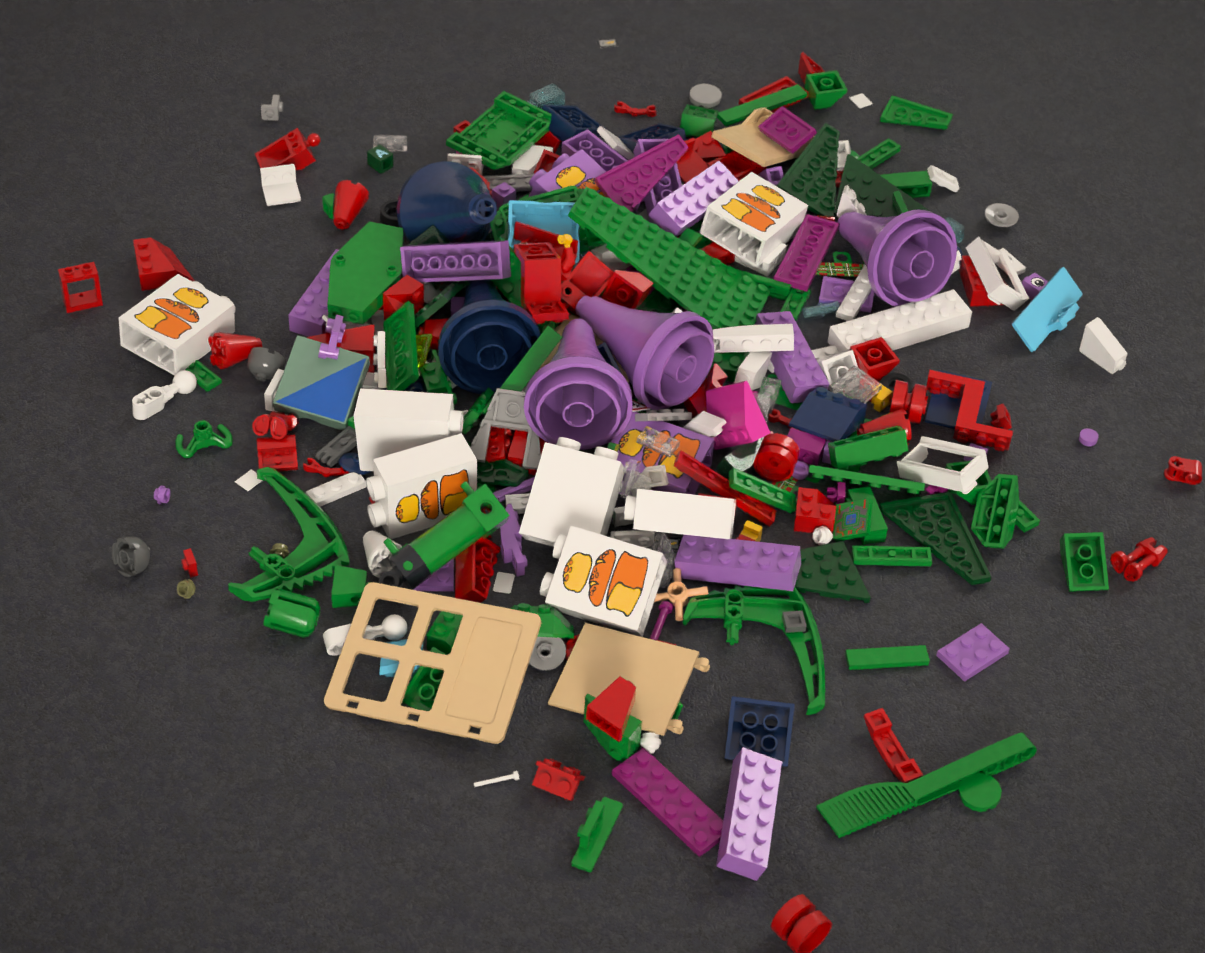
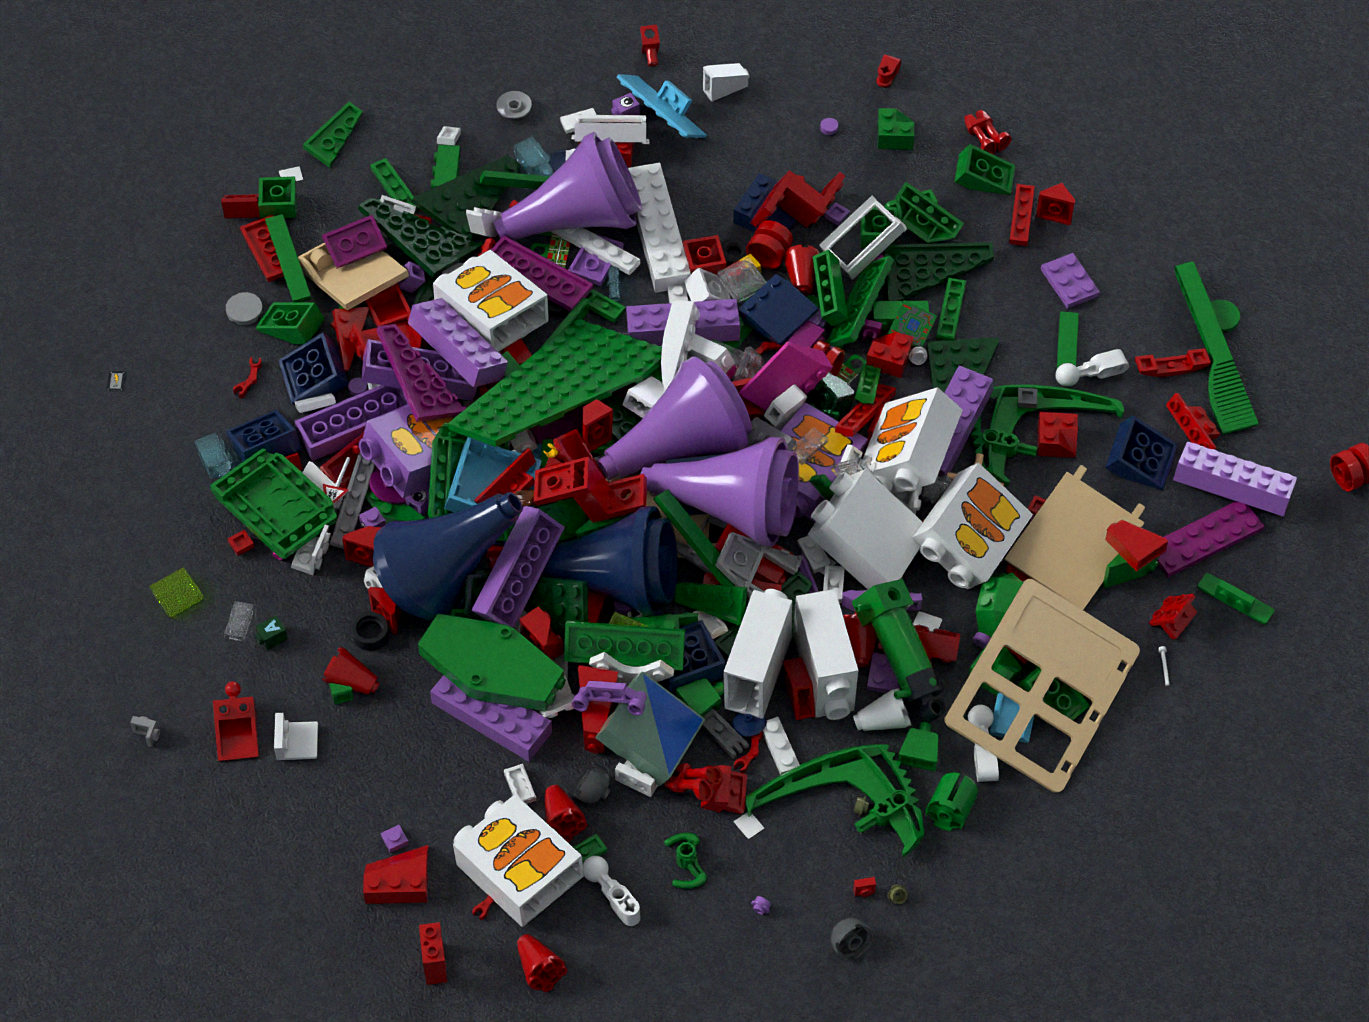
camera: 75 degrees left, 10 degrees up
(82, 355) = (539, 963): none -> red cone
(197, 260) = (394, 838): none -> medium lavender plate
(261, 324) = (520, 783): none -> white plate
(407, 104) = (176, 592): none -> clear neon green slope
(524, 165) = (336, 492): none -> piece
(759, 655) = (1057, 434): none -> red slope
(819, 779) = (1193, 422): none -> red bracket
(863, 685) = (1100, 365): none -> white beam
(1042, 600) = (1021, 215): none -> red plate
(1063, 619) = (1056, 204): none -> red slope
(1105, 483) = (894, 130): none -> green slope
(1118, 289) = (650, 45): none -> red bracket

